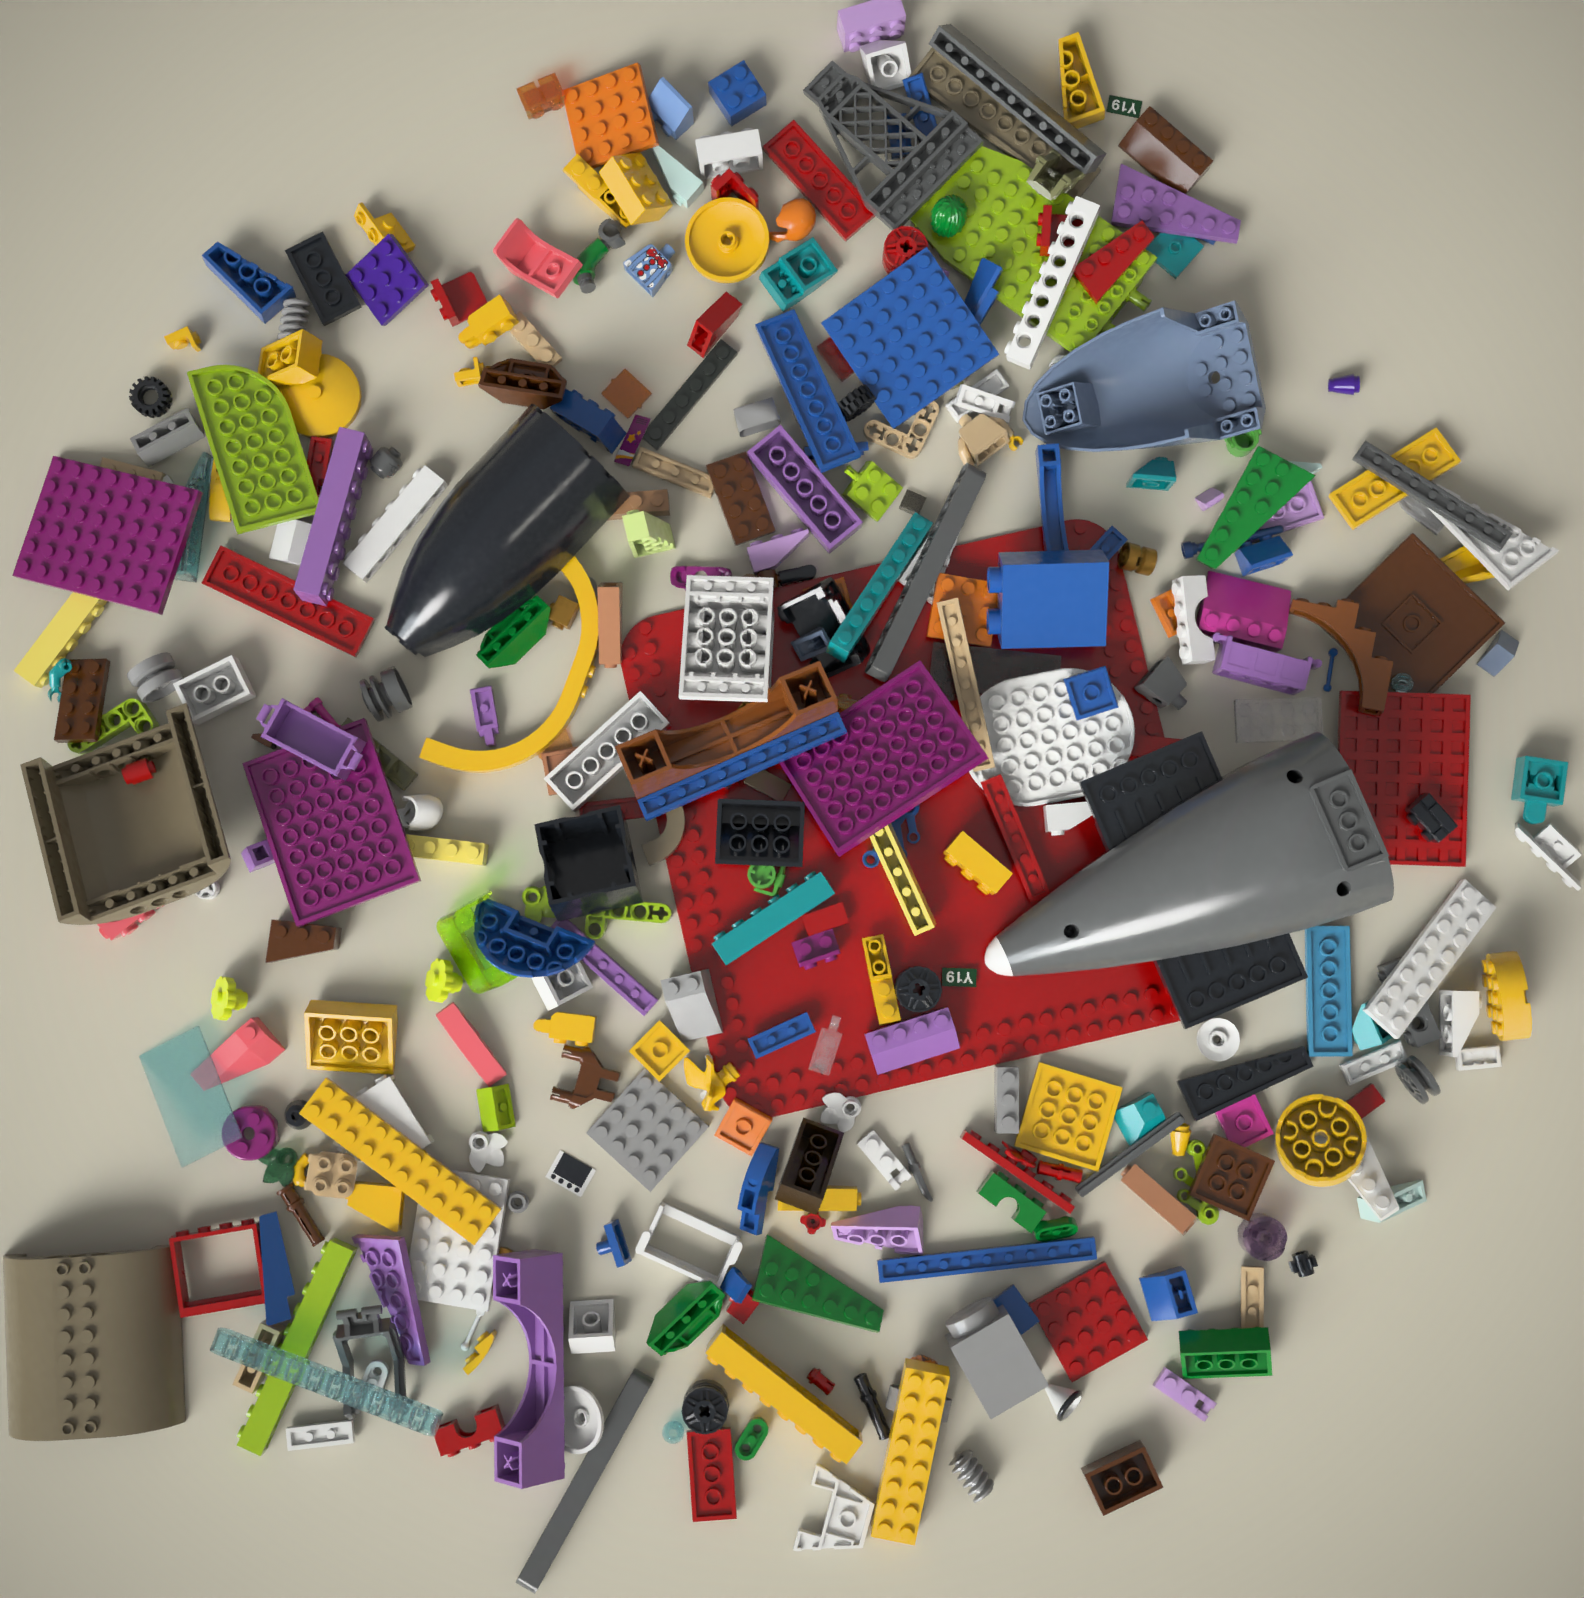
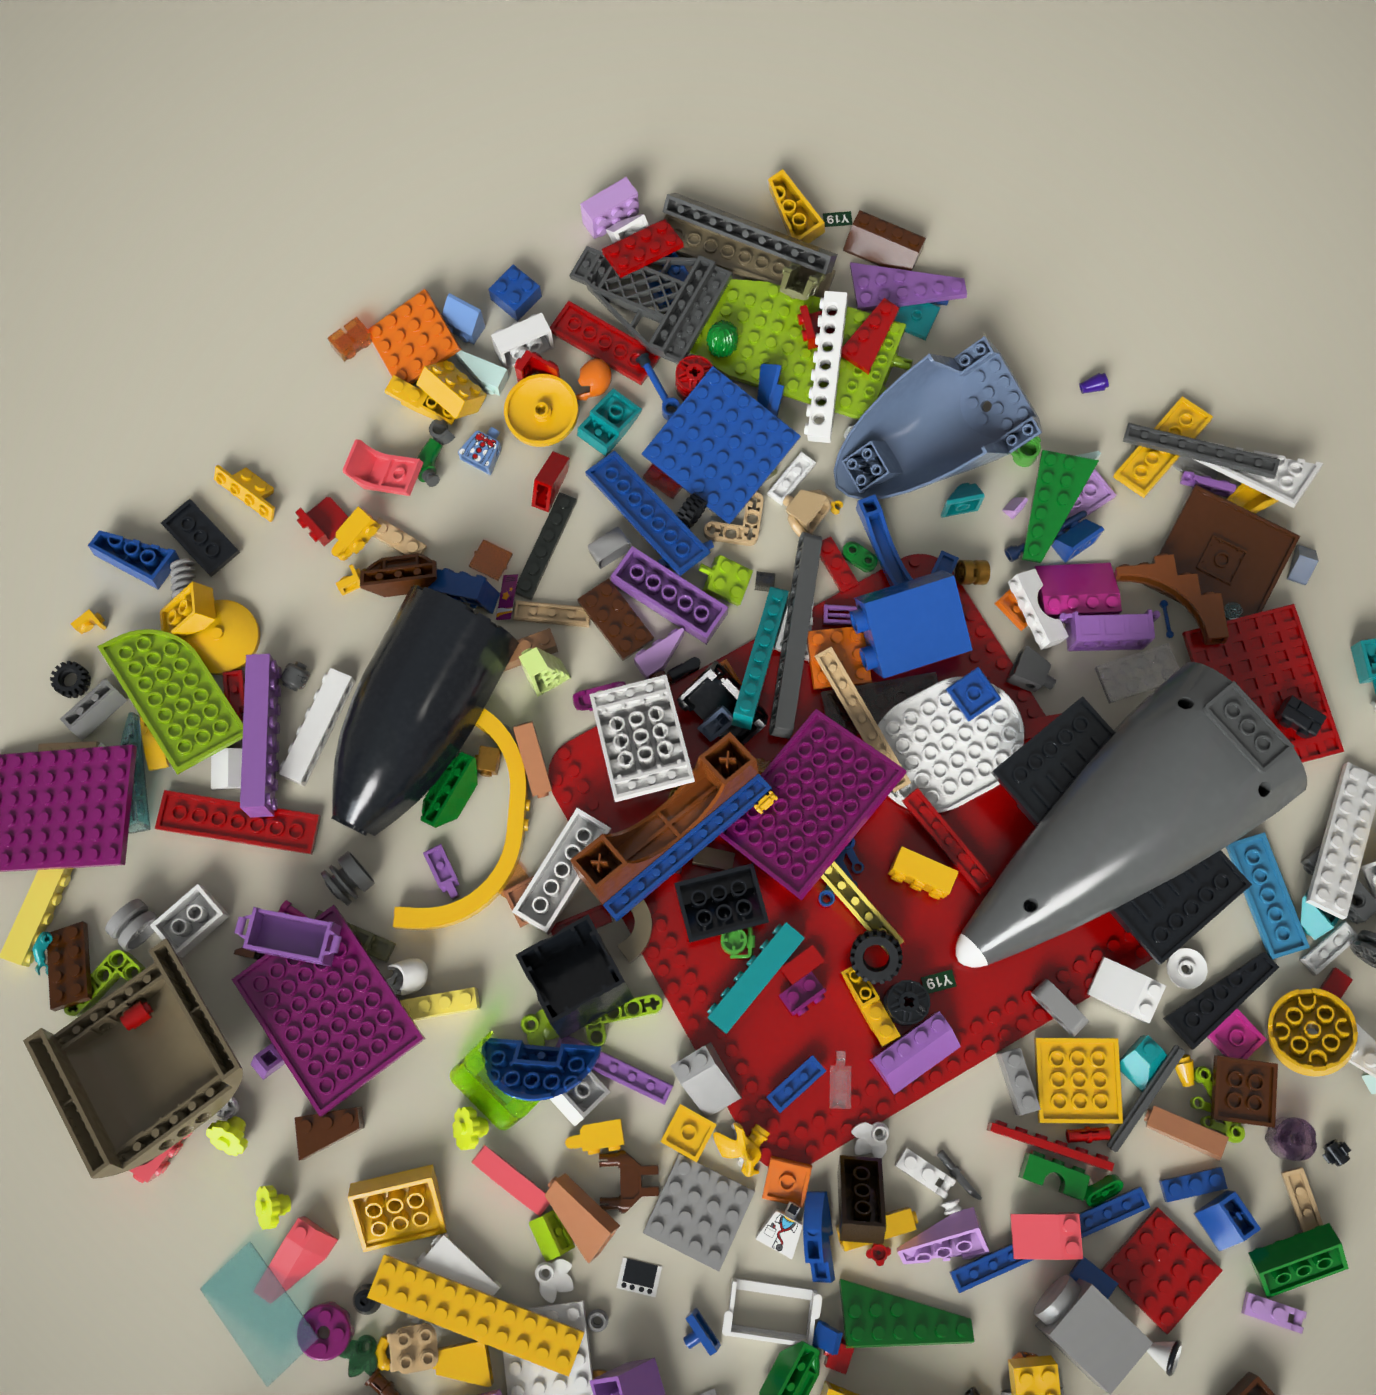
camera: 15 degrees left, 10 degrees down
(202, 917) = (228, 1135): none -> neon yellow plant
(387, 279) = (256, 522): dark purple plate -> none
(529, 1099) = (581, 1216): none -> nougat slope
(723, 1171) = (782, 1230): none -> white torso
(836, 743) = (765, 802): none -> yellow piece
(856, 218) = (645, 362): none -> blue piece
(891, 950) = (870, 973): none -> black tyre
(893, 82) = (642, 248): none -> red plate
(899, 1199) = (951, 1206): none -> white bush
(980, 555) = (826, 615): none -> medium lavender tile
(983, 402) = (799, 480): white plate -> none
(983, 1255) = (1046, 1236): none -> coral slope
(995, 508) = (837, 566): none -> red plate
(1023, 504) = (858, 557): none -> green plate
(1024, 1157) = (1051, 1131): red plate -> none
(1064, 816) = (985, 809): white slope -> none
(1073, 1039) = (1059, 1007): none -> light grey beam
(1147, 1042) = (1126, 990): none -> white slope
(1148, 1250) = (1193, 1184): none -> blue plate
(1427, 535) = (1220, 488): none -> medium lavender hinge

